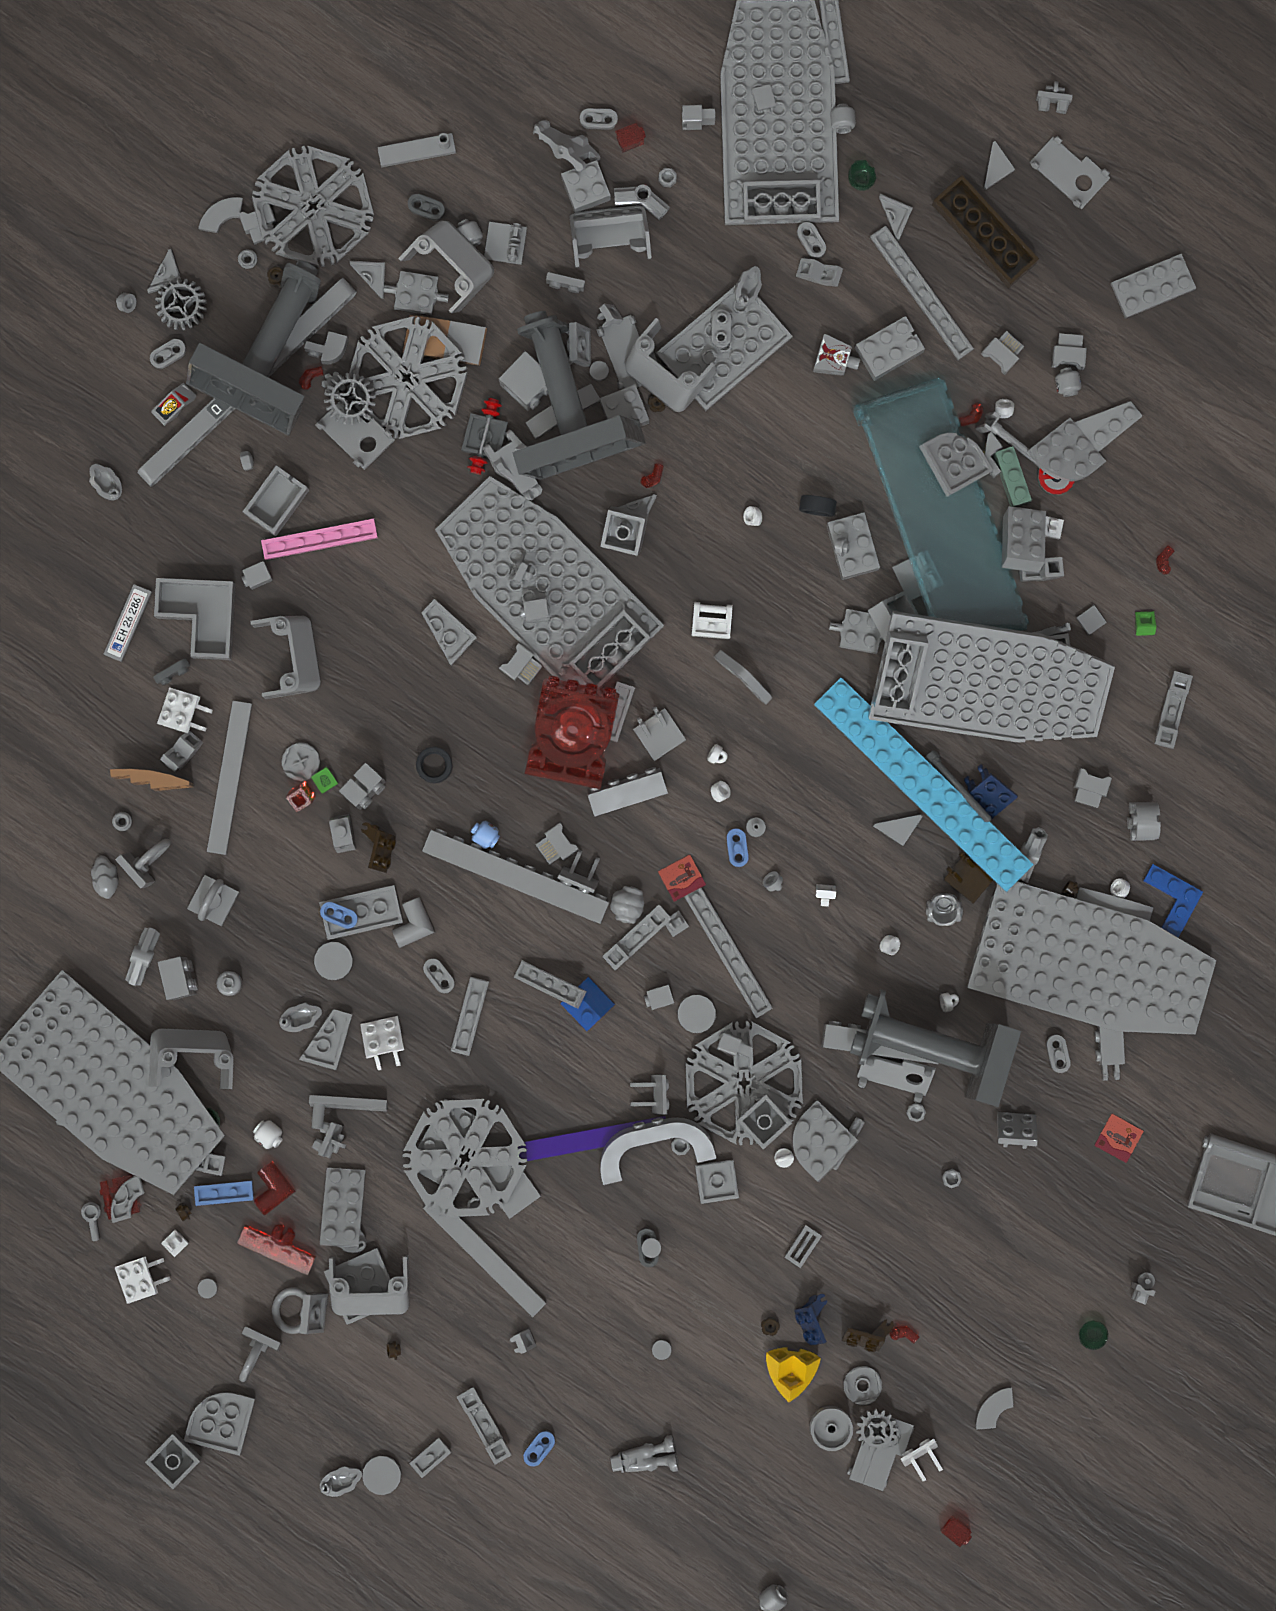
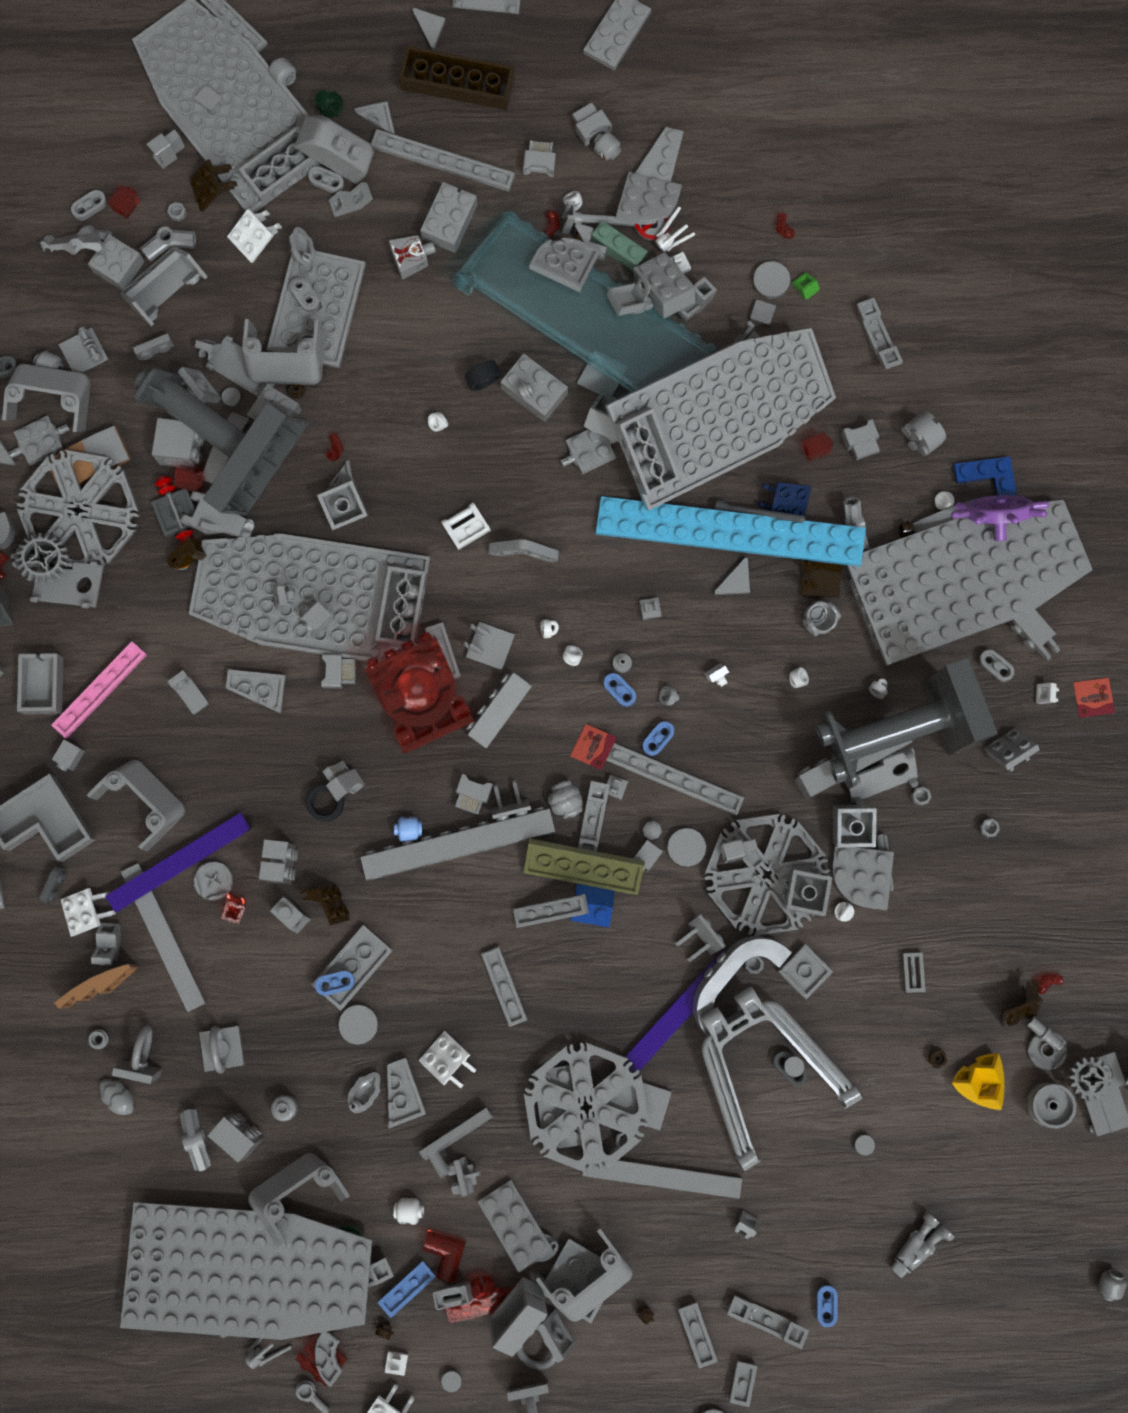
camera: 35 degrees left, 5 degrees down
(70, 1158) = (257, 1356): none -> light grey plant
(256, 1224) = (452, 1295): none -> light grey piece
(283, 727) = (178, 862): none -> dark purple tile
(294, 1276) = (517, 1317): none -> light grey piece
(324, 780) = (243, 881): bright green slope -> none
(389, 595) = (188, 692): none -> light grey bracket
(417, 928) = (407, 943): light grey brick -> none
(422, 1395) = (697, 1335): none -> light grey plate
(438, 976) = (454, 972): light grey plate -> none
(461, 757) = (342, 780): none -> light grey piece
(468, 478) = (186, 554): none -> dark brown leg
(515, 416) = (188, 478): none -> clear red brick
(602, 968) = (583, 866): none -> olive plate
(615, 1178) = (723, 1030): none -> light grey piece
(679, 979) = (652, 830): none -> light grey tile
(707, 172) = (205, 186): none -> dark brown plate
(714, 243) = (251, 235): none -> white plate
(738, 910) = (658, 739): none -> medium blue plate
(807, 1318) = (963, 1028): dark blue plate -> none
(812, 799) = (650, 608): none -> light grey tile
(836, 222) = (335, 147): none -> light grey hips
(842, 1096) = (854, 826): none -> light grey brick
(869, 1370) = (1045, 1033): none -> light grey pin
(985, 531) = (630, 297): none -> light grey piece
(1049, 766) = (817, 447): none -> clear red brick
(1055, 501) = (665, 241): none -> white plant
(1081, 1106) = (1046, 693): none -> white tile
(1119, 597) = (771, 280): none -> light grey tile
(1152, 931) = (999, 511): none -> medium lavender piece

